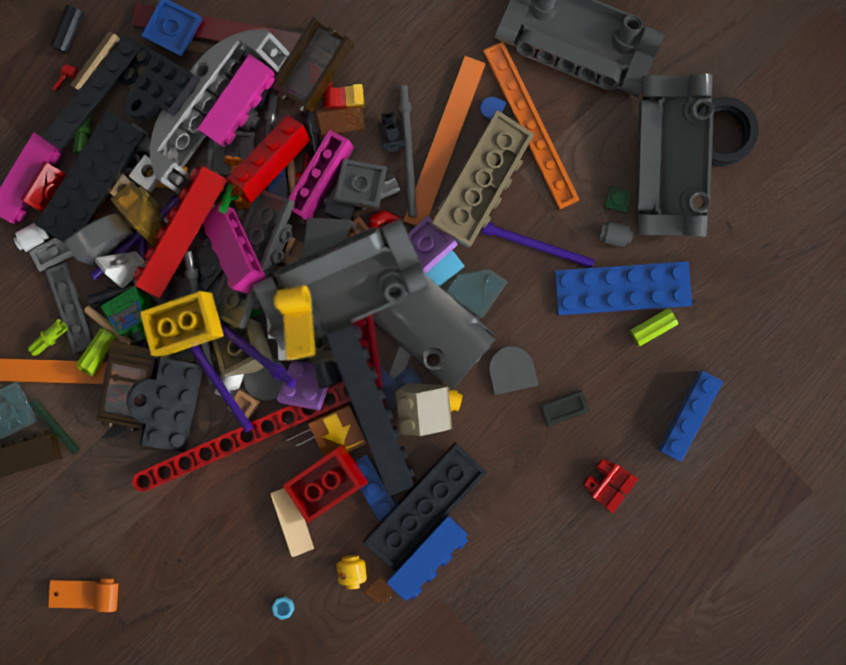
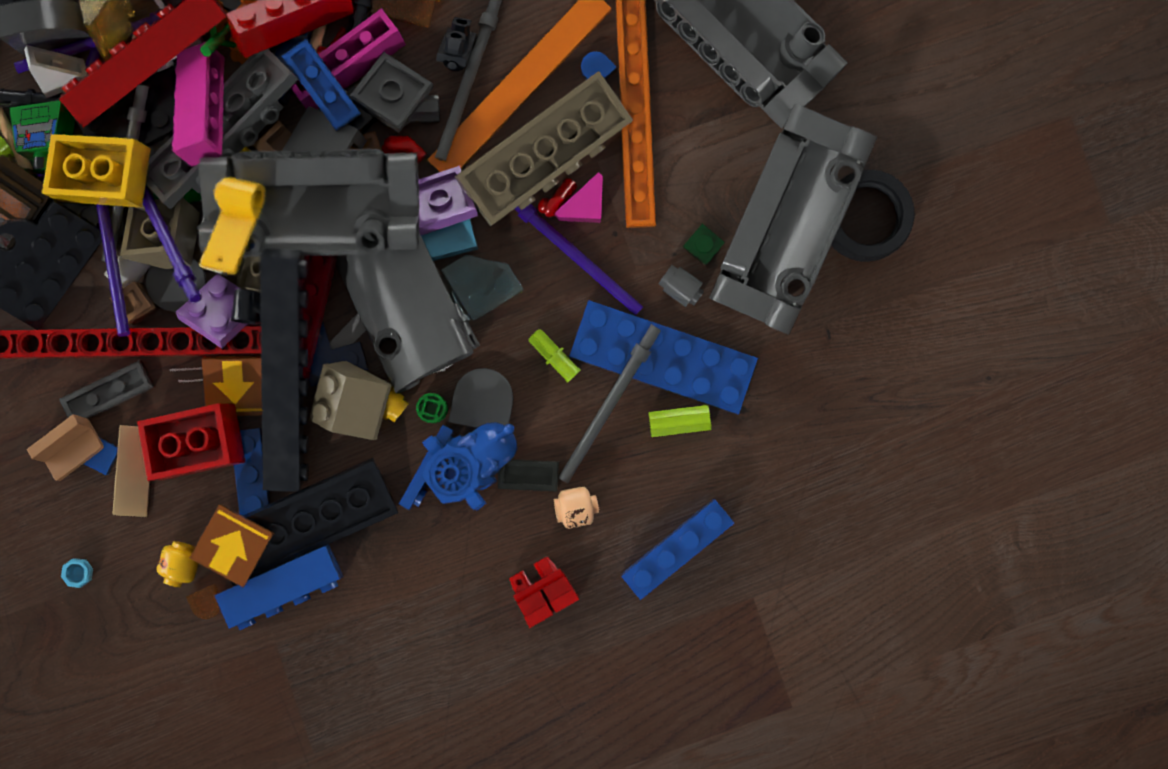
camera: 25 degrees right, 0 degrees up
(240, 523) = (67, 446): none -> medium nougat panel
(250, 475) = (108, 391): none -> dark grey tile
(264, 519) = (105, 459): none -> blue tile
(312, 199) = (321, 85): none -> blue tile
(384, 543) = (231, 545): none -> dark orange tile
(477, 391) = (437, 409): none -> green wheel
(495, 432) = (415, 493): none -> blue plate
(506, 208) = (559, 198): none -> red arm
(524, 417) = (471, 465): none -> blue helmet
(526, 205) = (585, 204): none -> dark pink slope
(548, 318) = (554, 355): none -> lime axle
(607, 292) = (640, 354): none -> dark grey bar
(608, 416) = (575, 507): none -> light nougat head

